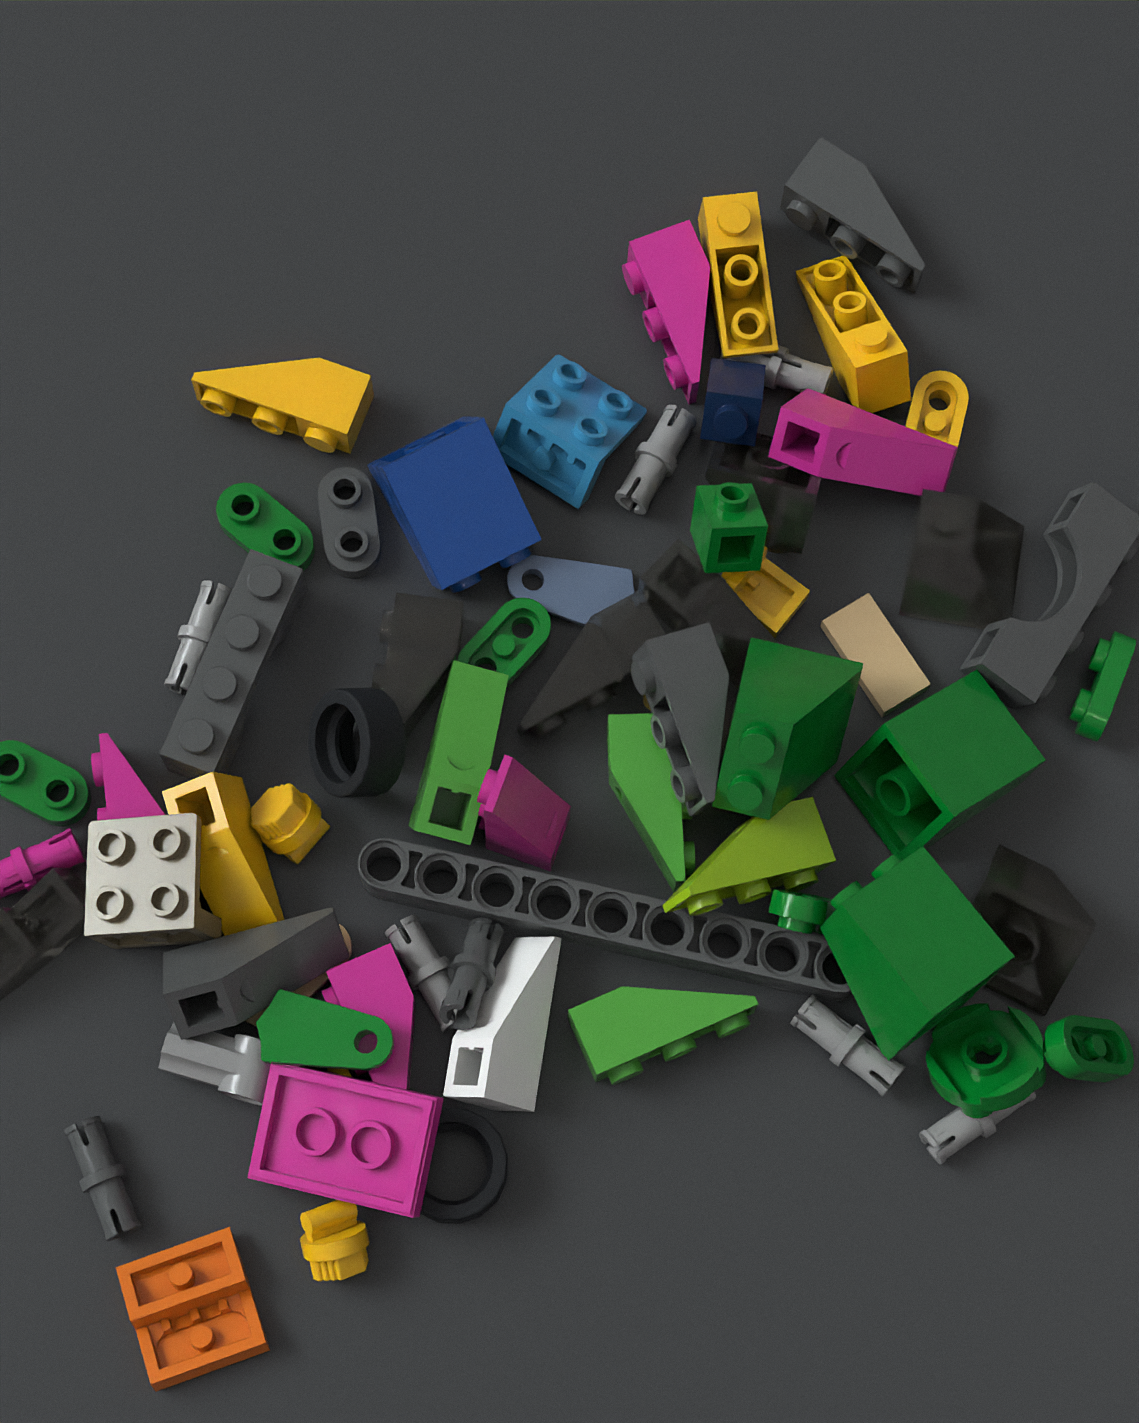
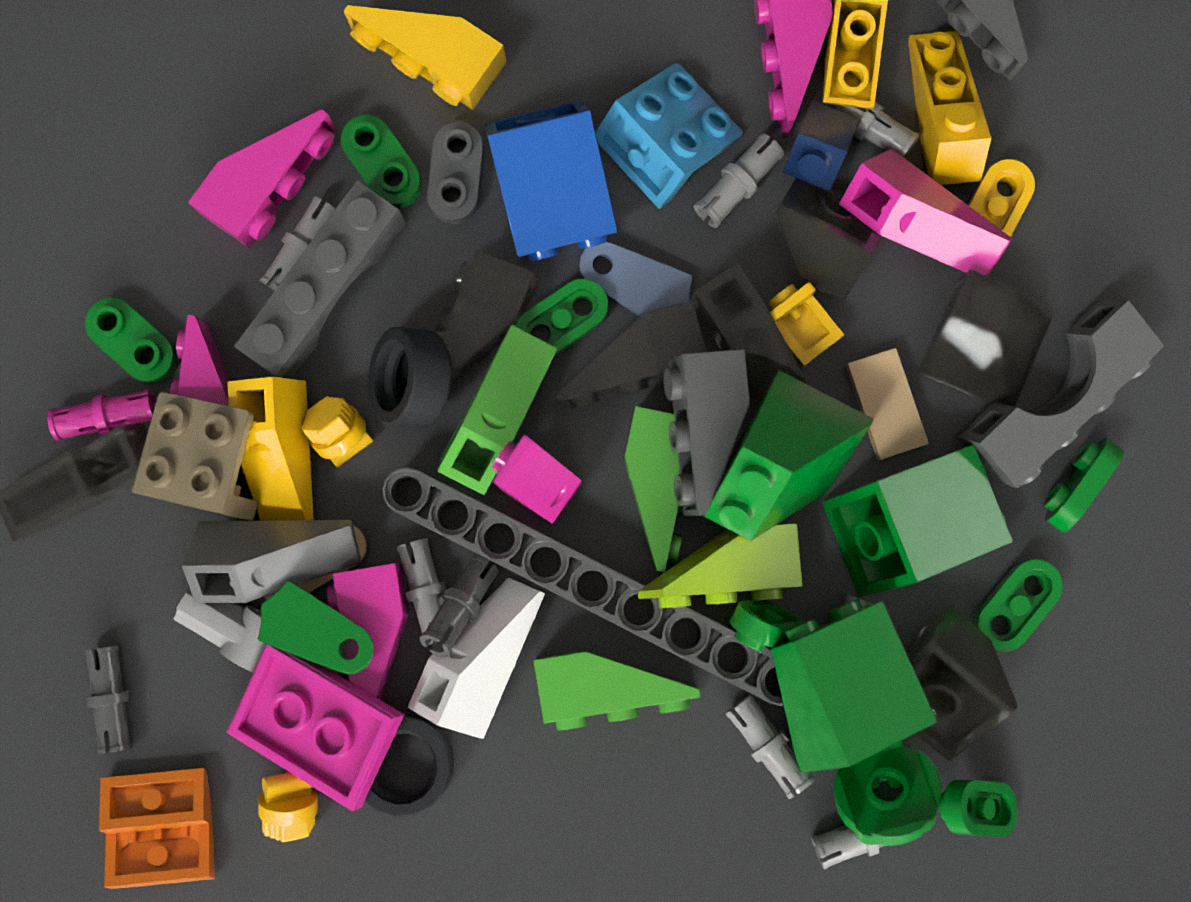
camera: 20 degrees right, 10 degrees up
(133, 580) = (254, 182): none -> dark pink slope
(728, 528) = (785, 265): green brick -> none
(1072, 832) = (1016, 606): none -> green plate

